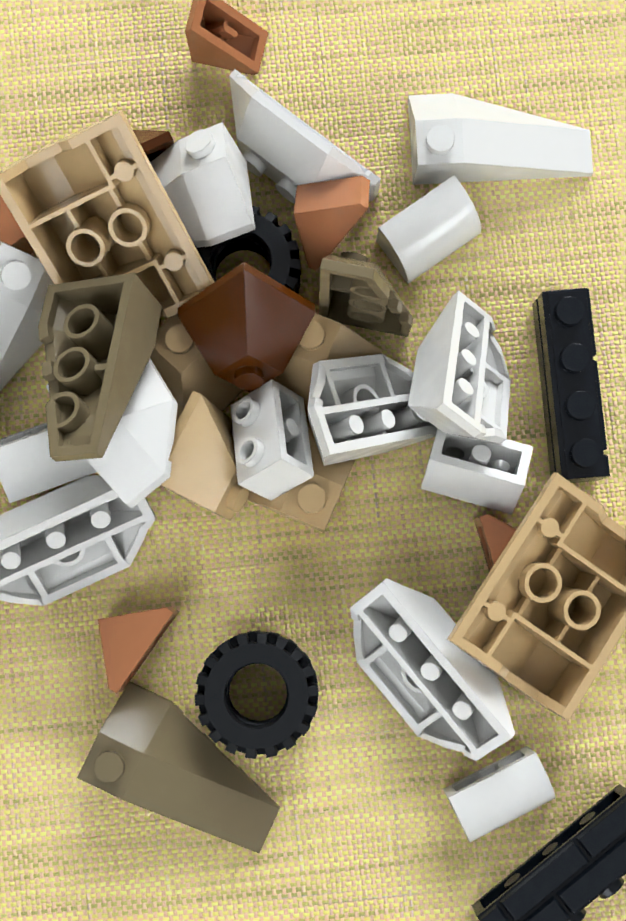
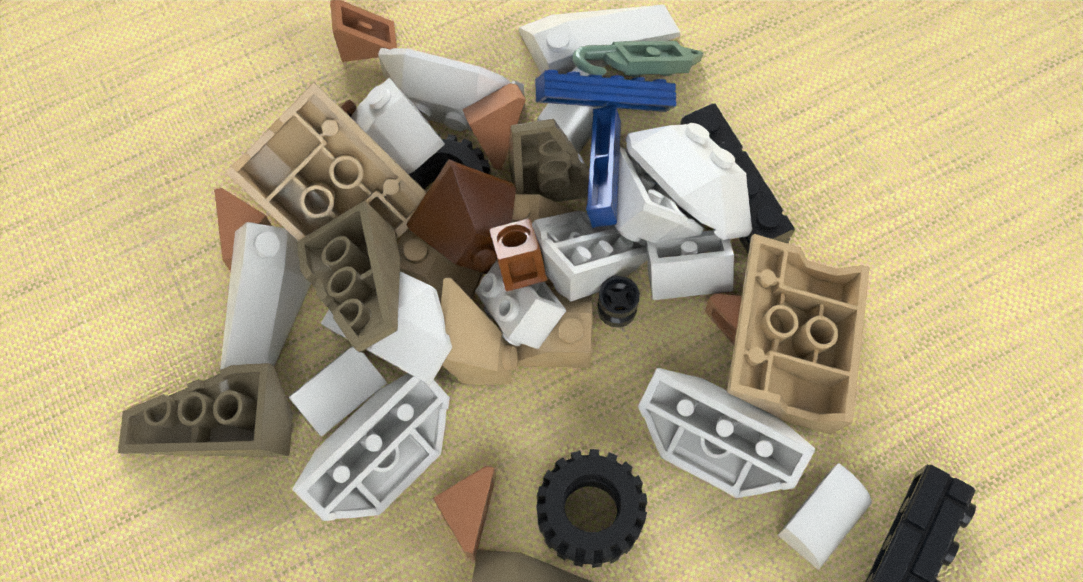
camera: 20 degrees left, 15 degrees down
(281, 397) = (518, 254): none -> dark orange brick
(386, 471) = (621, 293): none -> black wheel
(429, 317) = (604, 167): none -> blue piece
(470, 225) = (605, 92): none -> blue piece
(521, 370) = (696, 175): none -> white wedge
(526, 193) = (638, 57): none -> sand green plate

